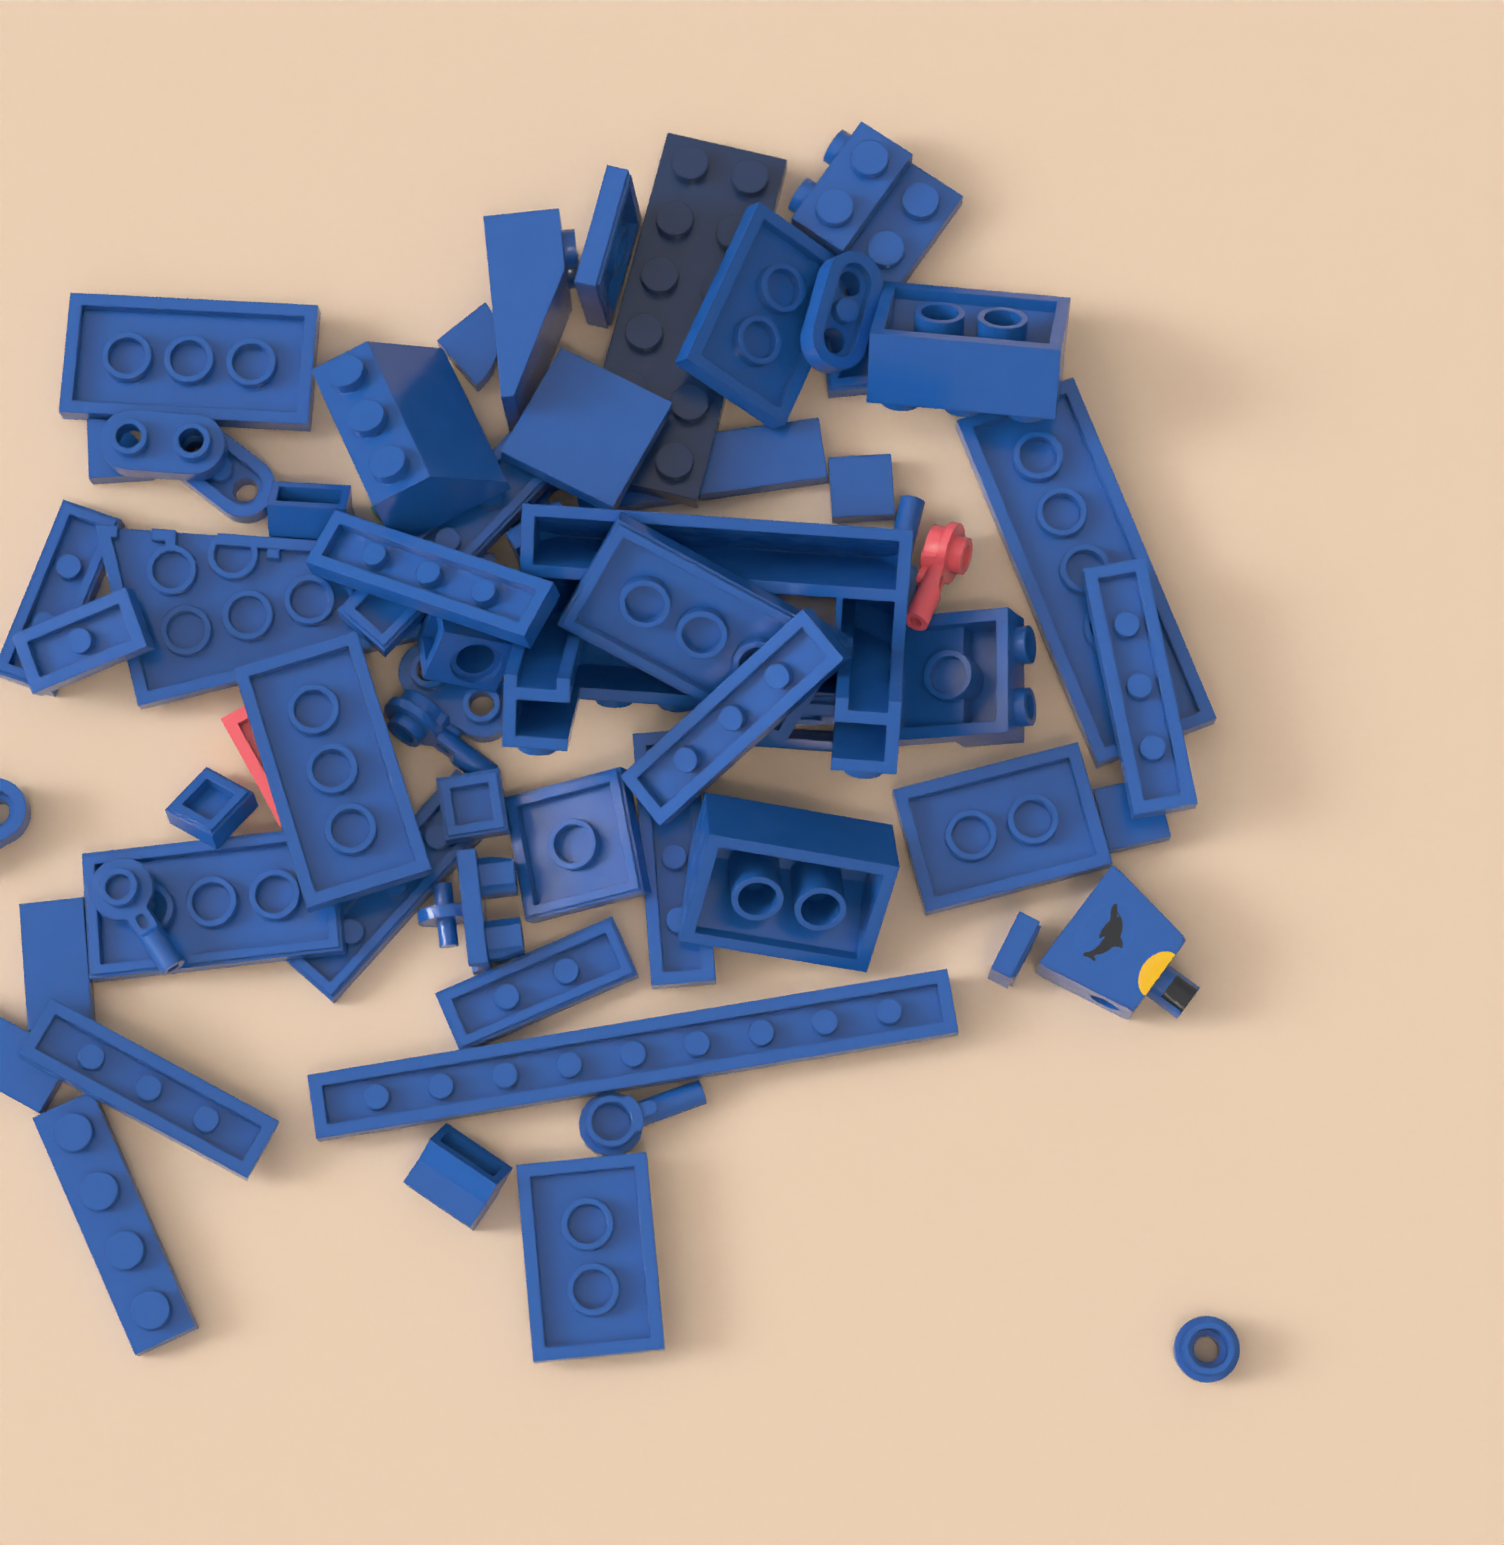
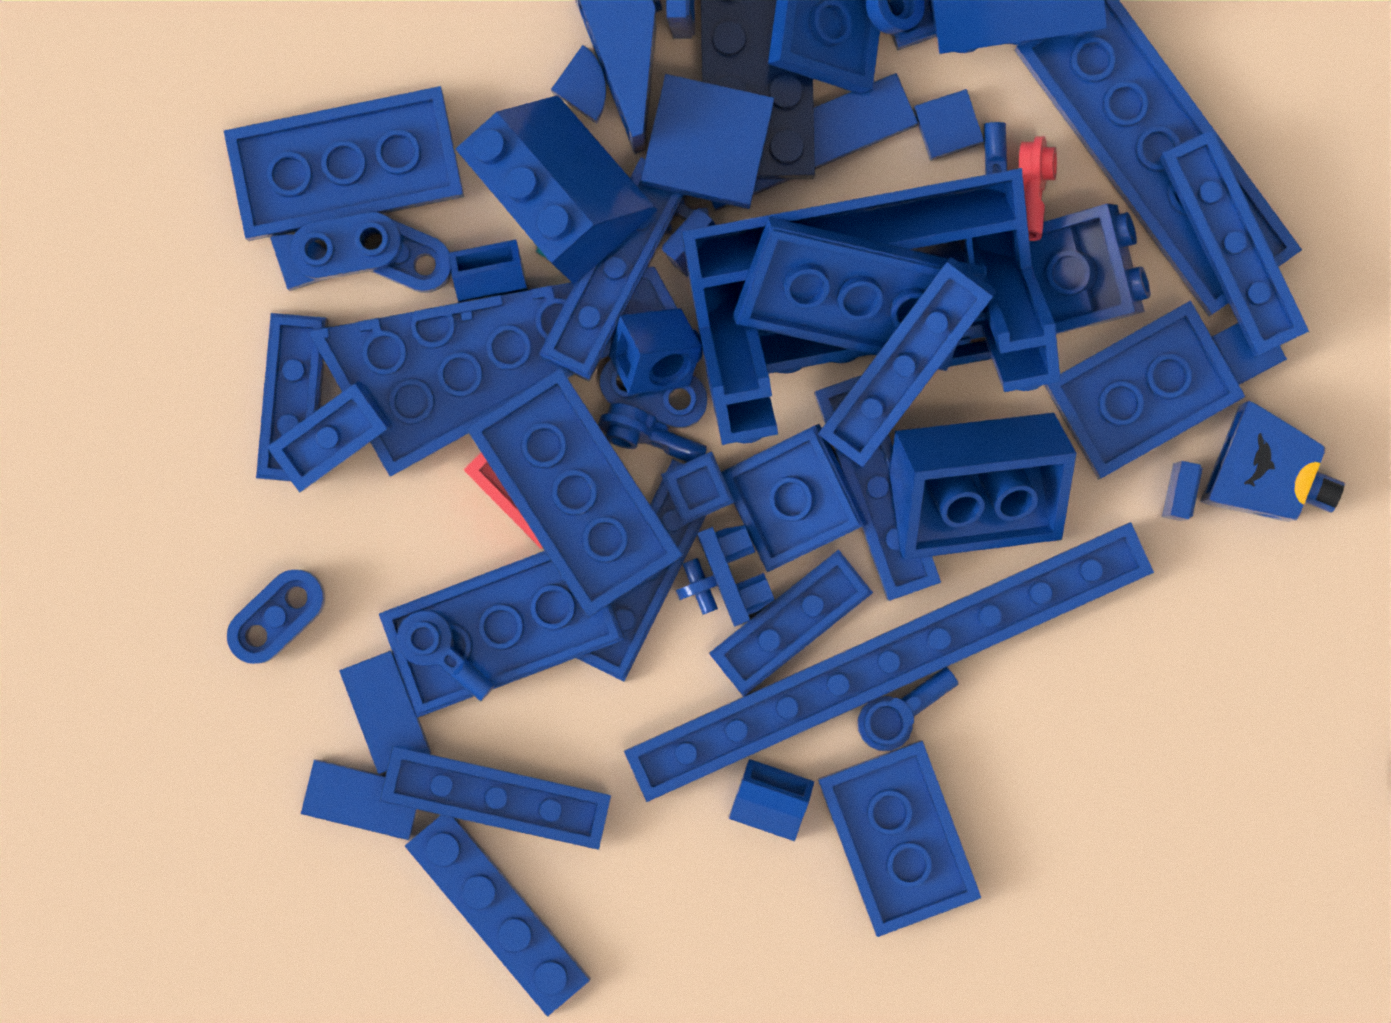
camera: 20 degrees left, 10 degrees up
(211, 808) = (477, 547): blue tile -> none
(433, 578) = (618, 310): blue plate -> none

